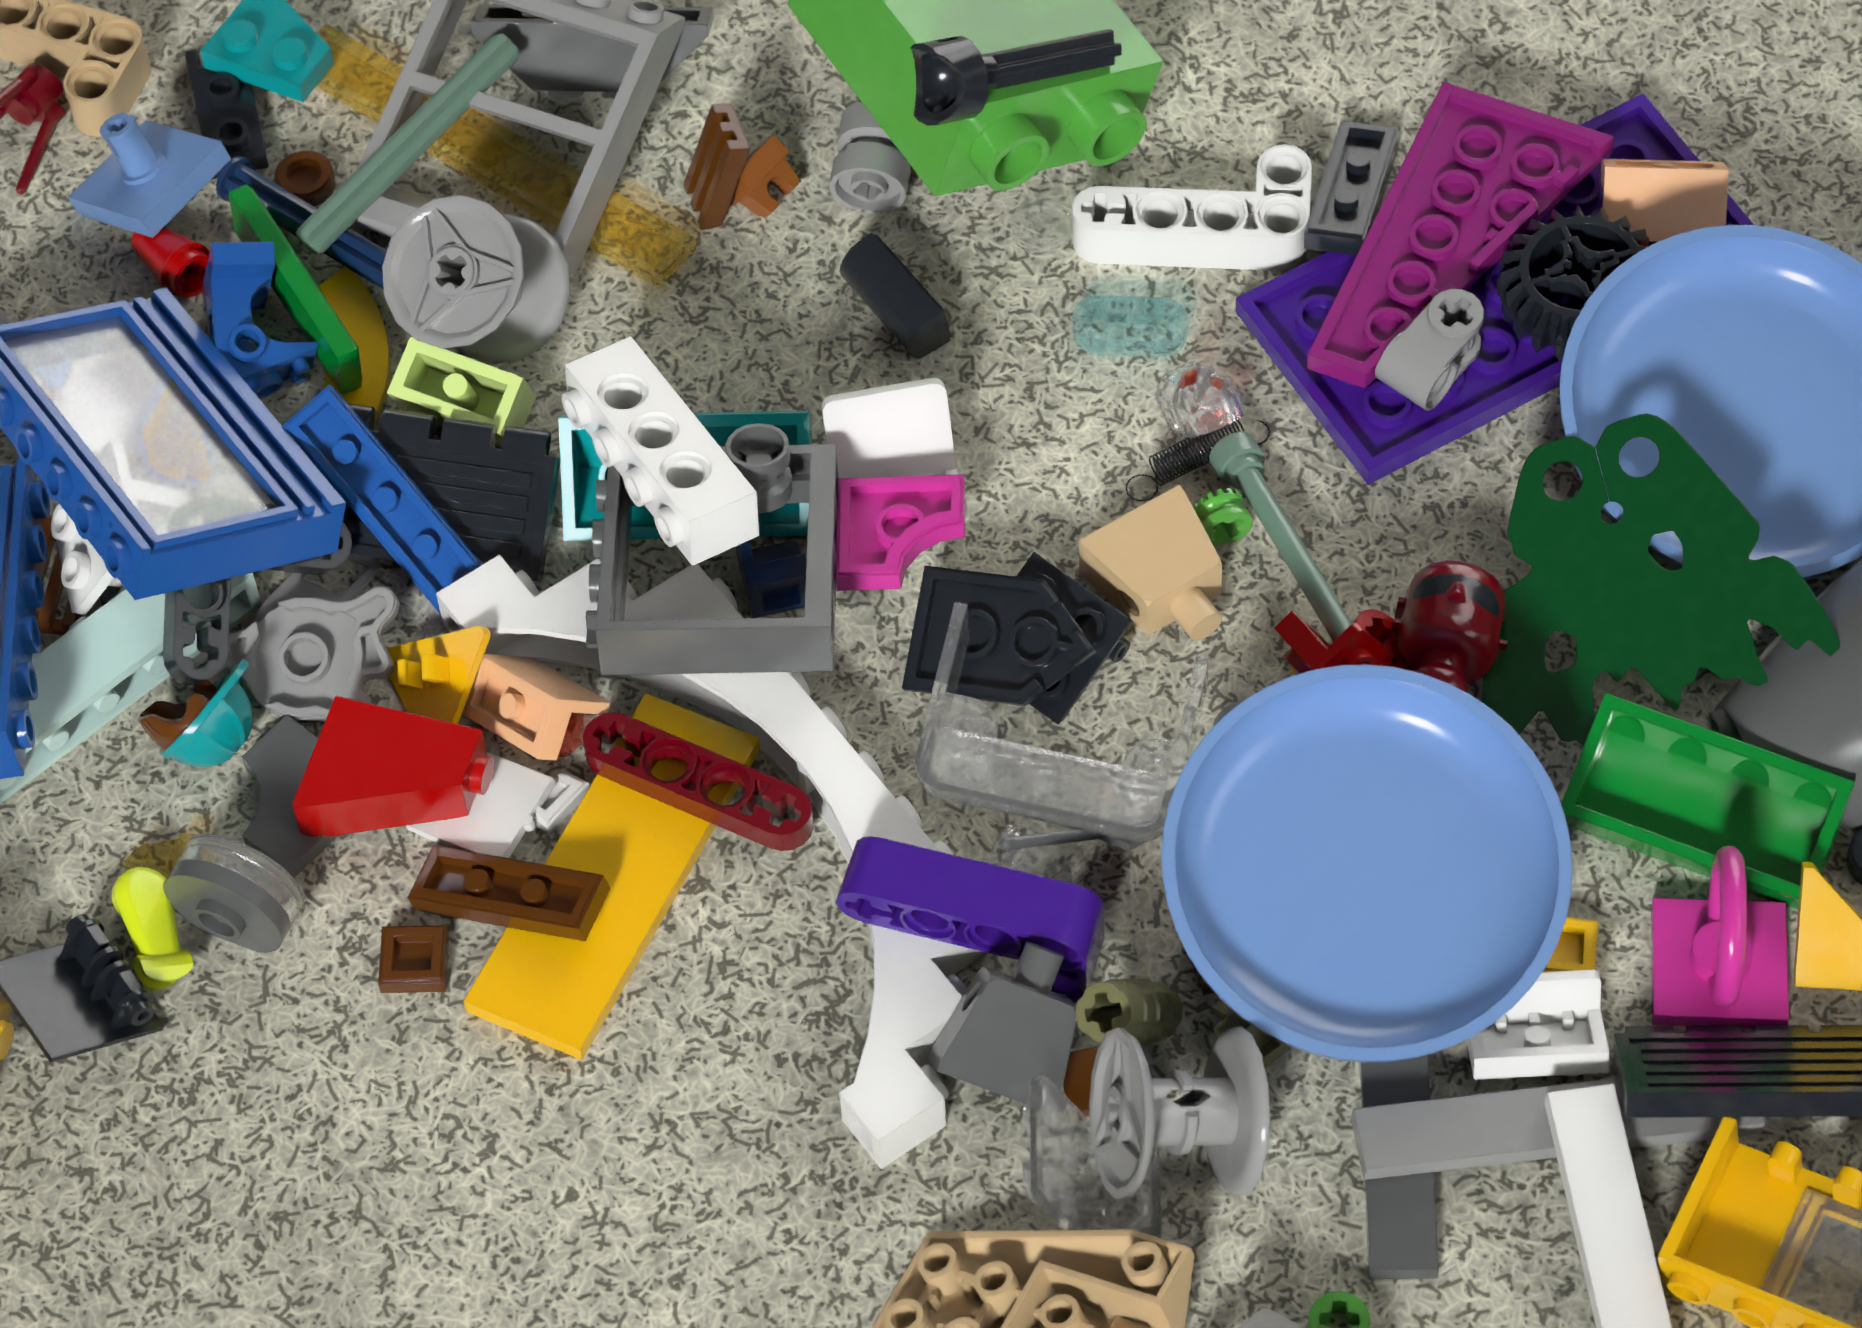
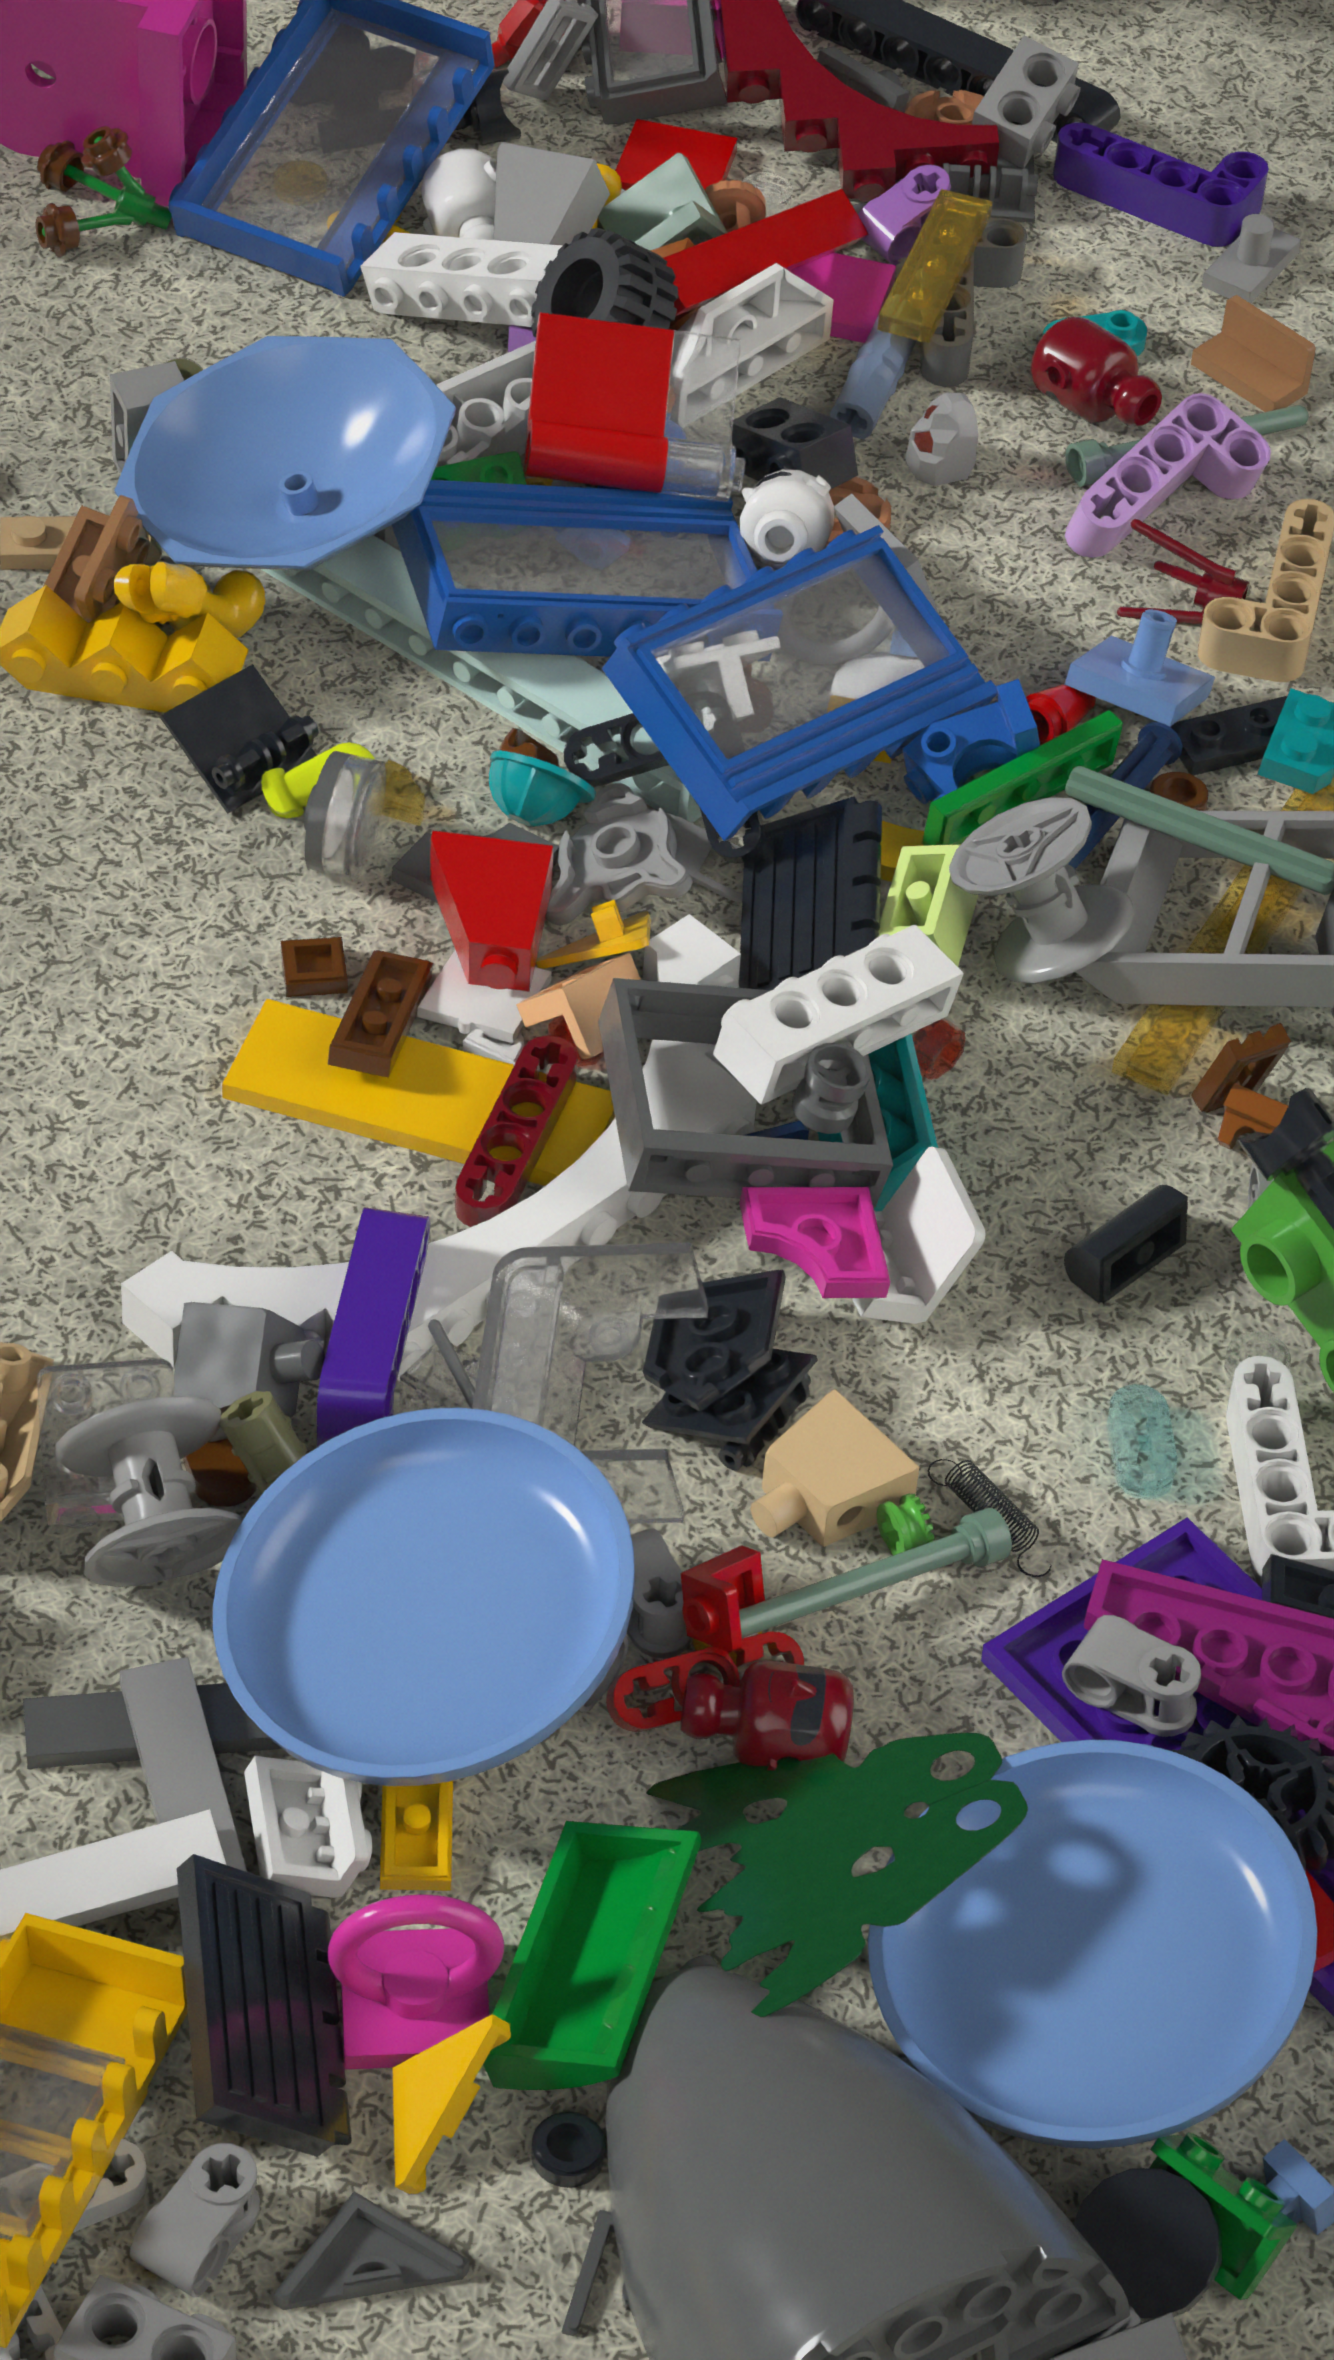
camera: 75 degrees right, 10 degrees down
(381, 493) = (795, 861): blue tile -> none
(1198, 400) = (1043, 1489): clear rock -> none

